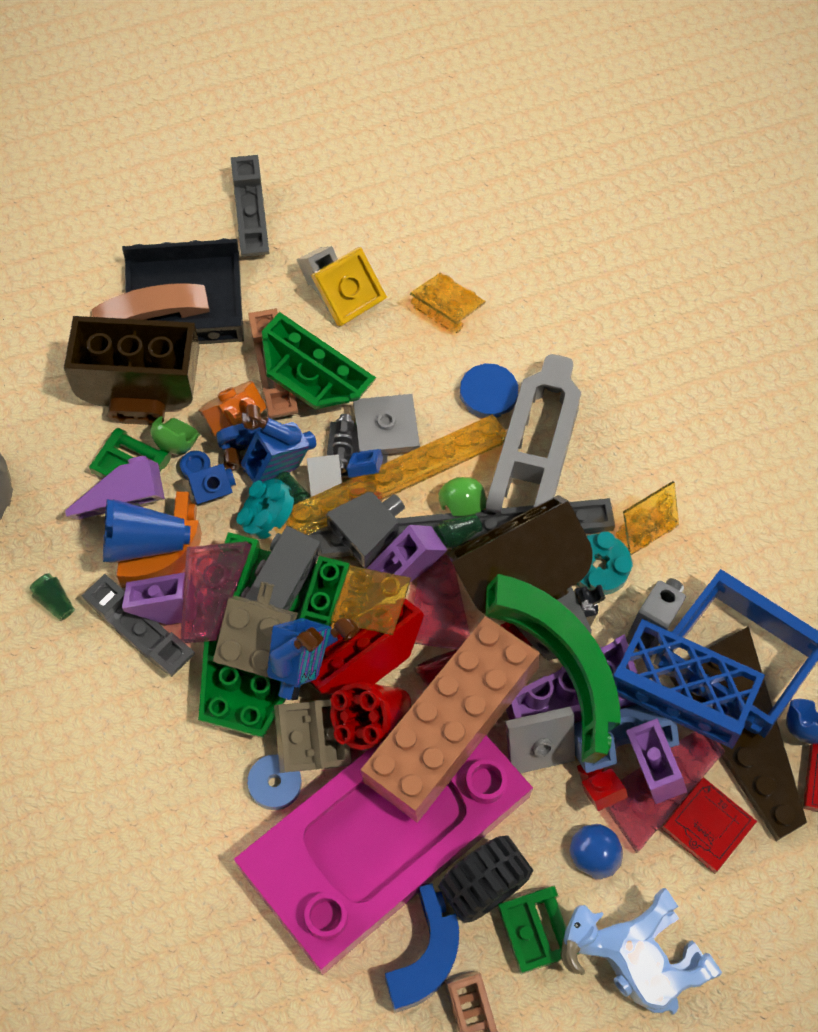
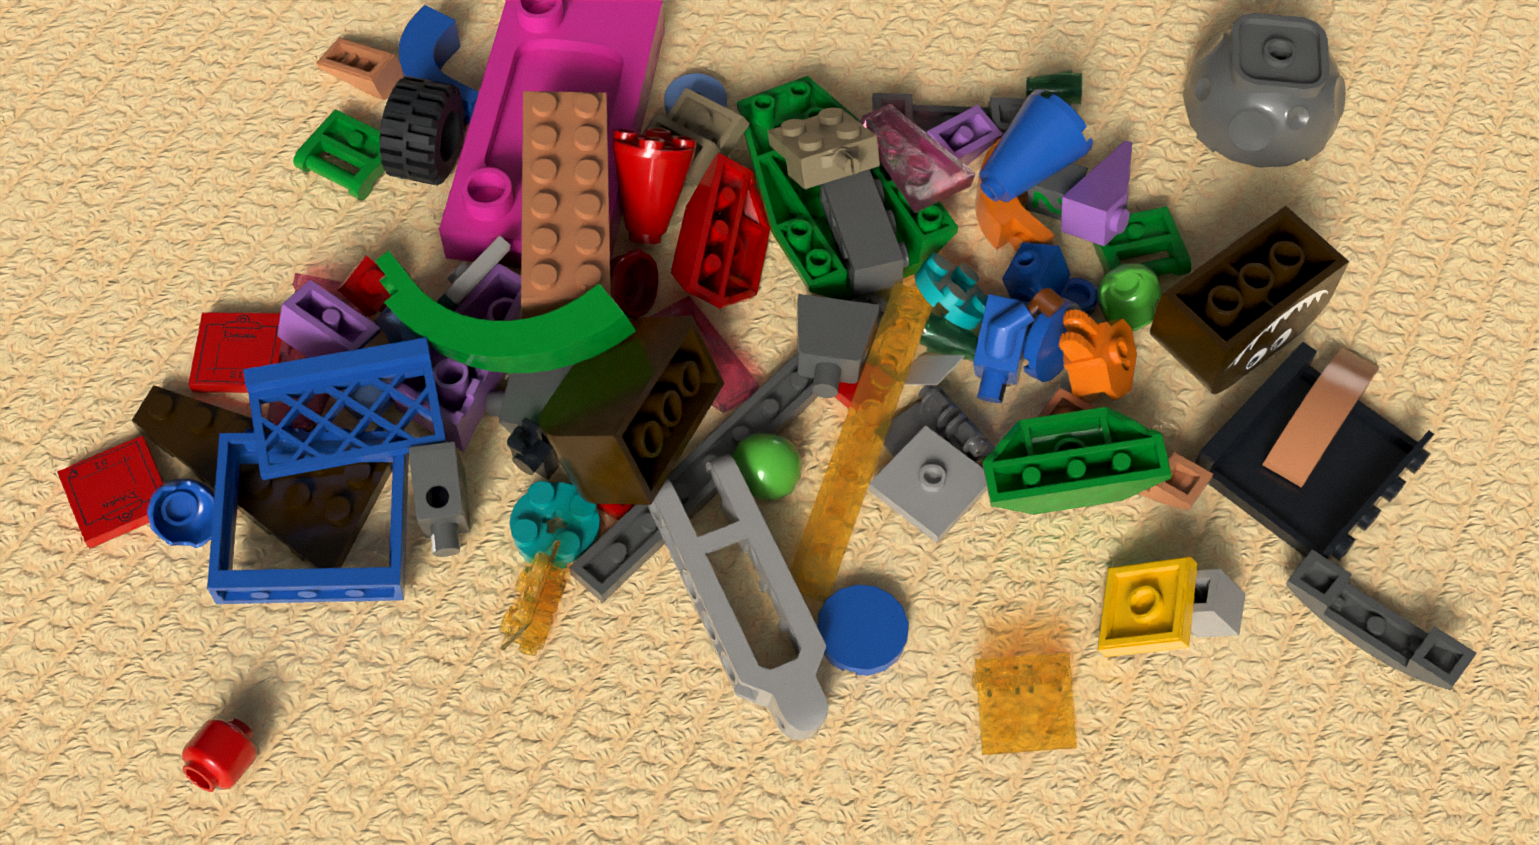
camera: 140 degrees right, 5 degrees down
(299, 651) = (762, 150): blue torso -> none
(365, 463) = (904, 411): blue tile -> none
(371, 599) = (752, 268): clear yellow hinge -> none
(410, 552) = (759, 341): medium lavender slope -> none
(458, 530) = (735, 409): clear green cone -> none
(596, 851) = (337, 249): blue hair -> none
(635, 955) = (229, 182): light blue animal -> none

